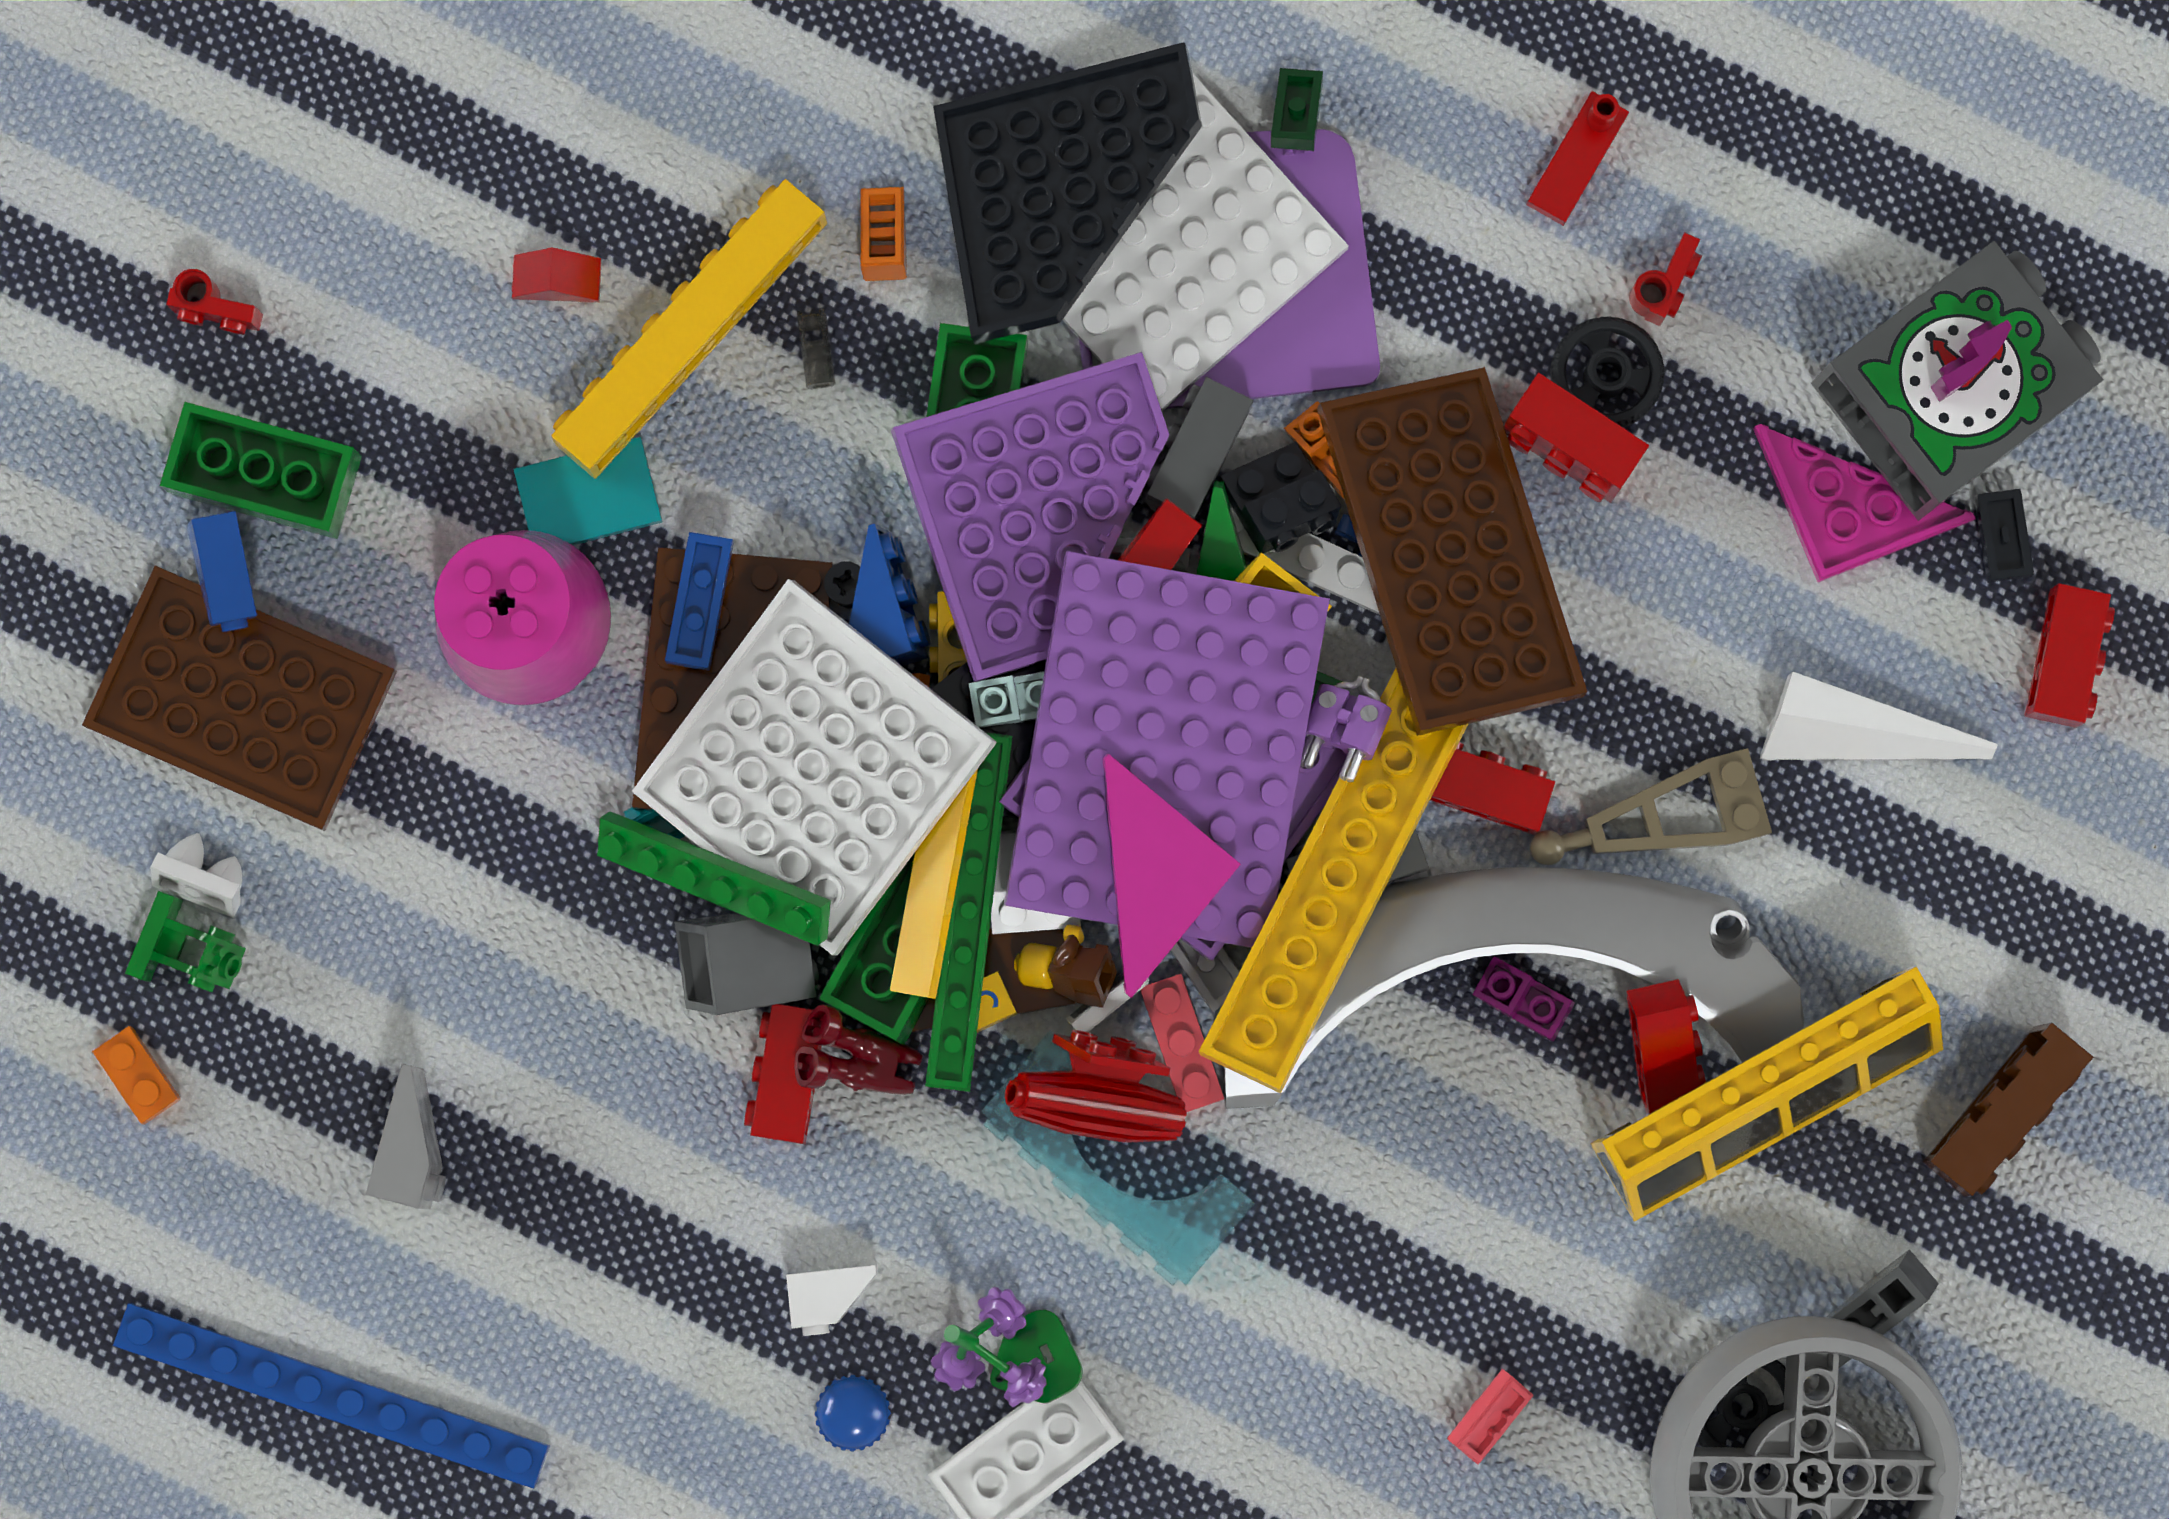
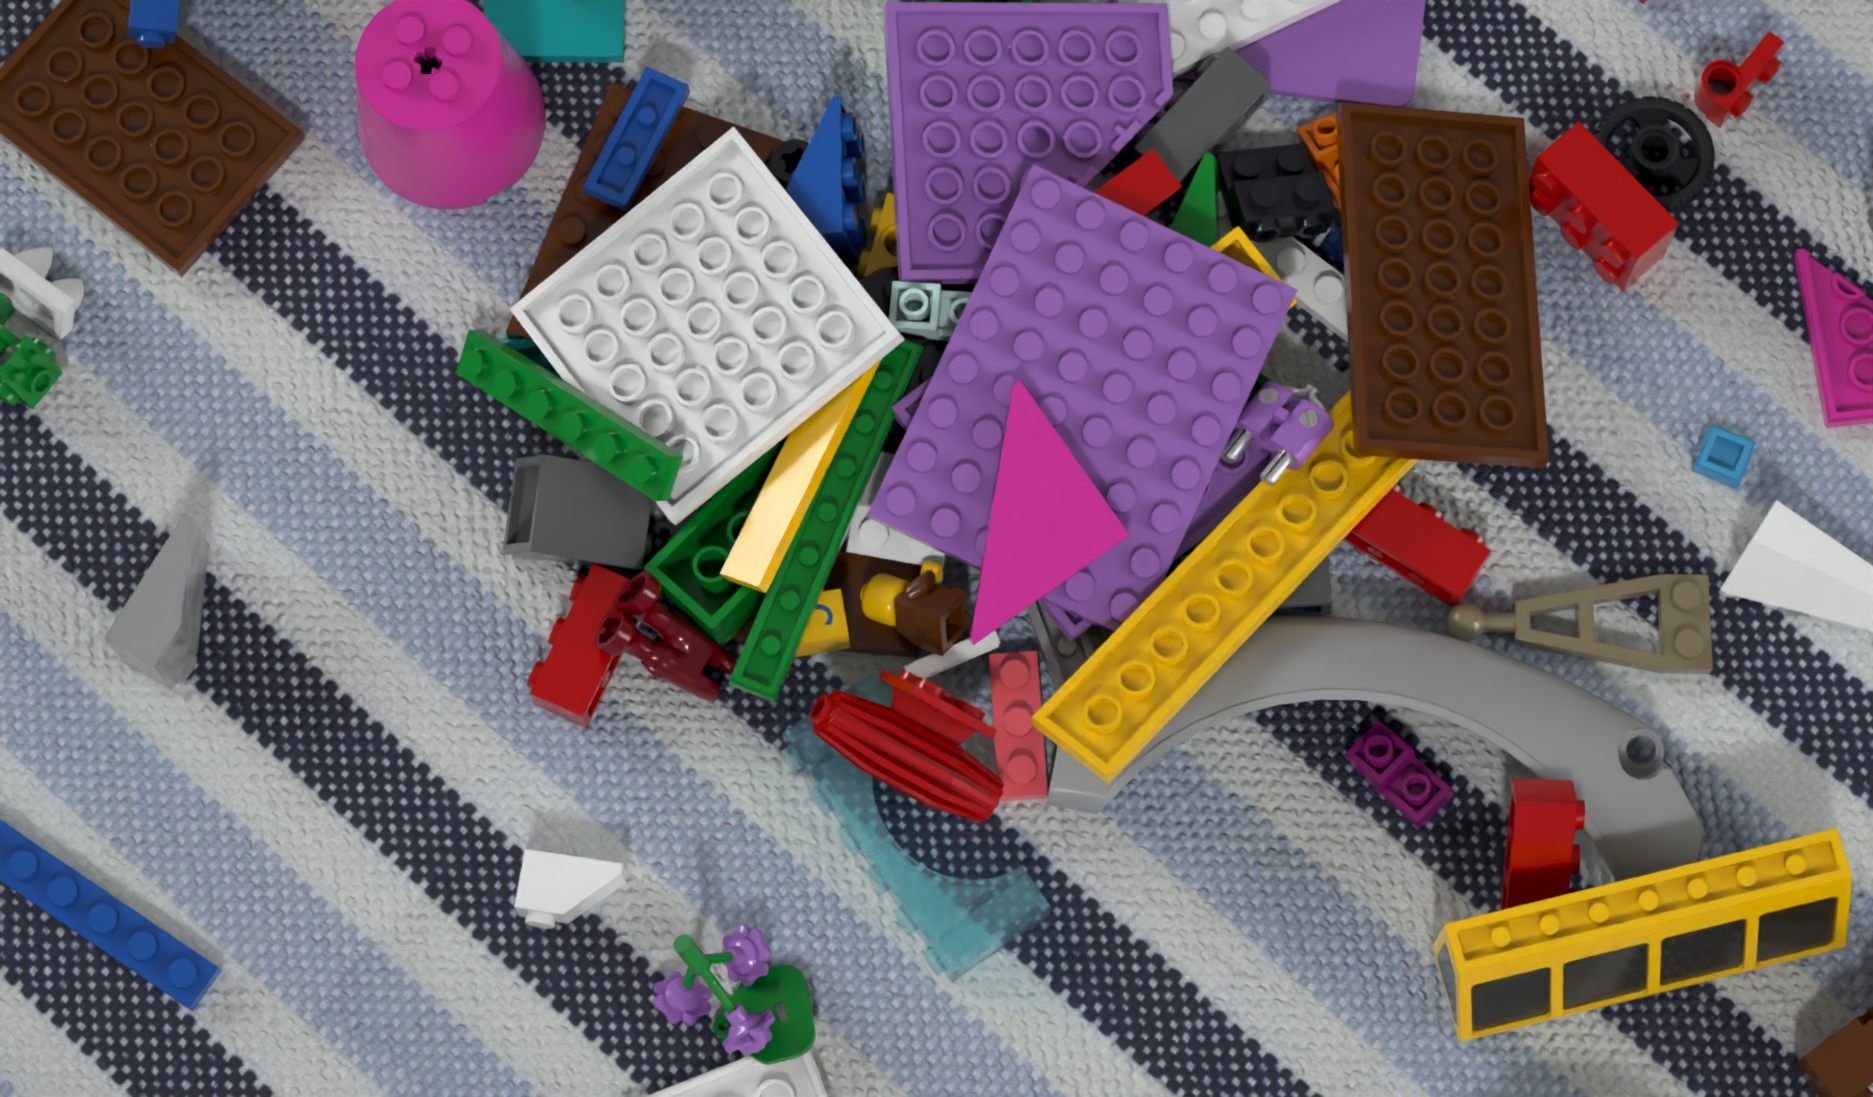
camera: 15 degrees right, 10 degrees down
(852, 1413) = (554, 1023): blue hat -> none
(1735, 634) = (1724, 456): none -> dark azure tile

